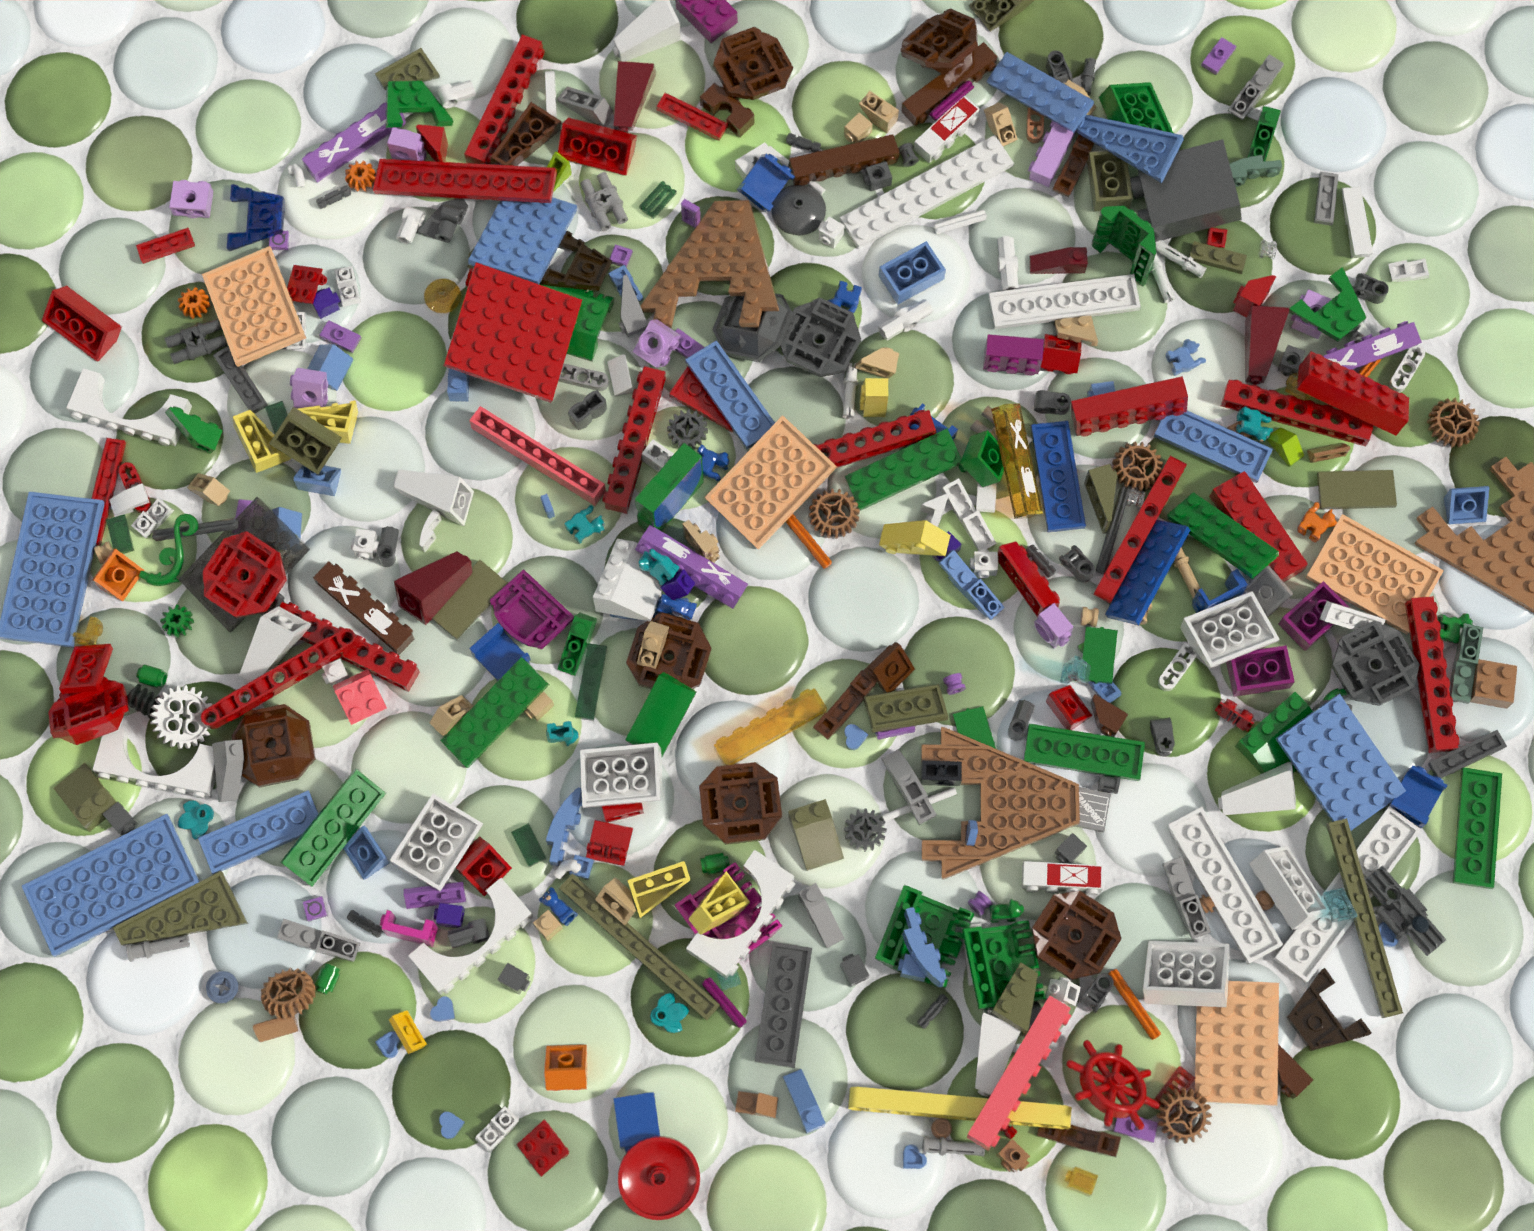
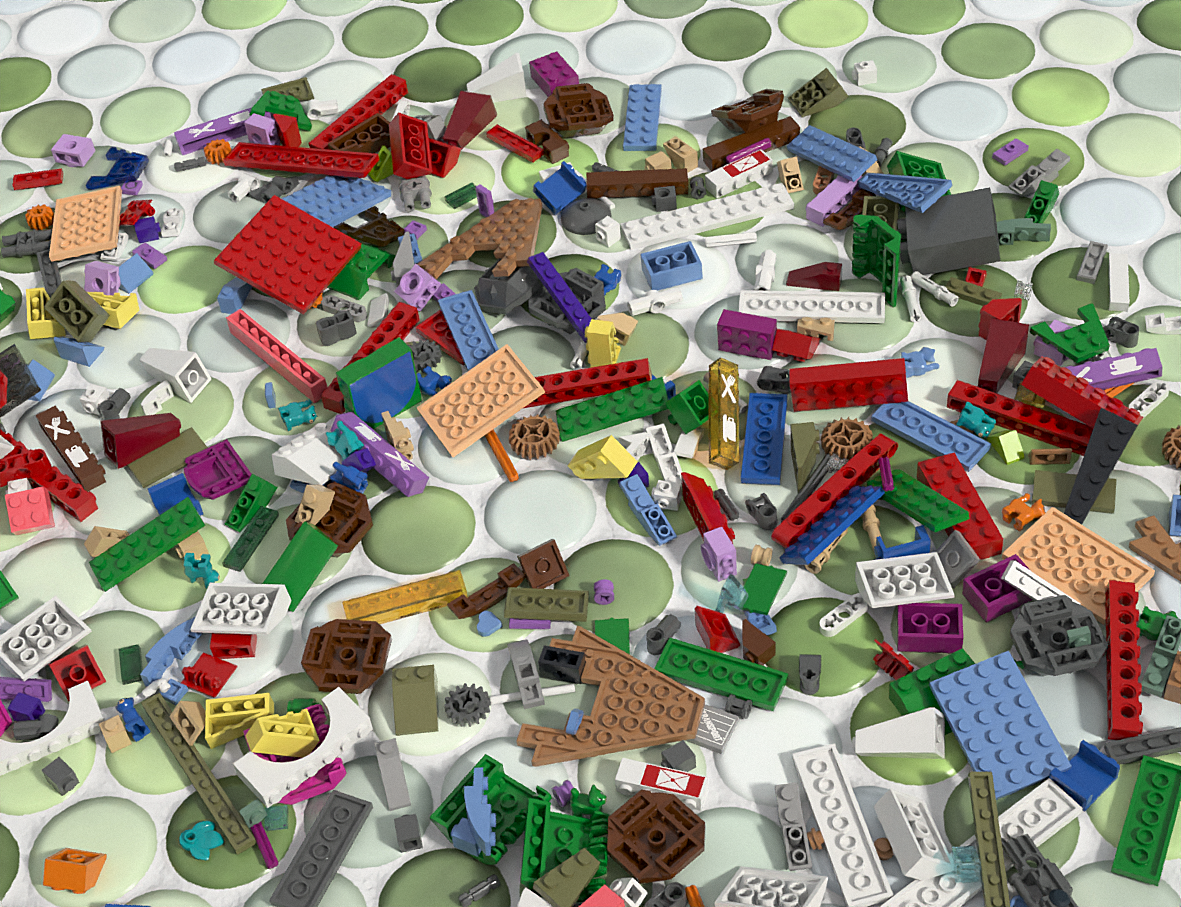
camera: 20 degrees right, 25 degrees down
(587, 152) = (409, 147): none -> red slope
(713, 984) = (253, 813): none -> sand green plate
(819, 56) = (642, 117): none -> medium blue plate
(821, 343) = (560, 293): none -> dark purple plate
(1187, 507) = (886, 474): none -> magenta axle
(1383, 449) = (1103, 451): none -> black wing
(1395, 666) = (1078, 637): none -> sand green plate

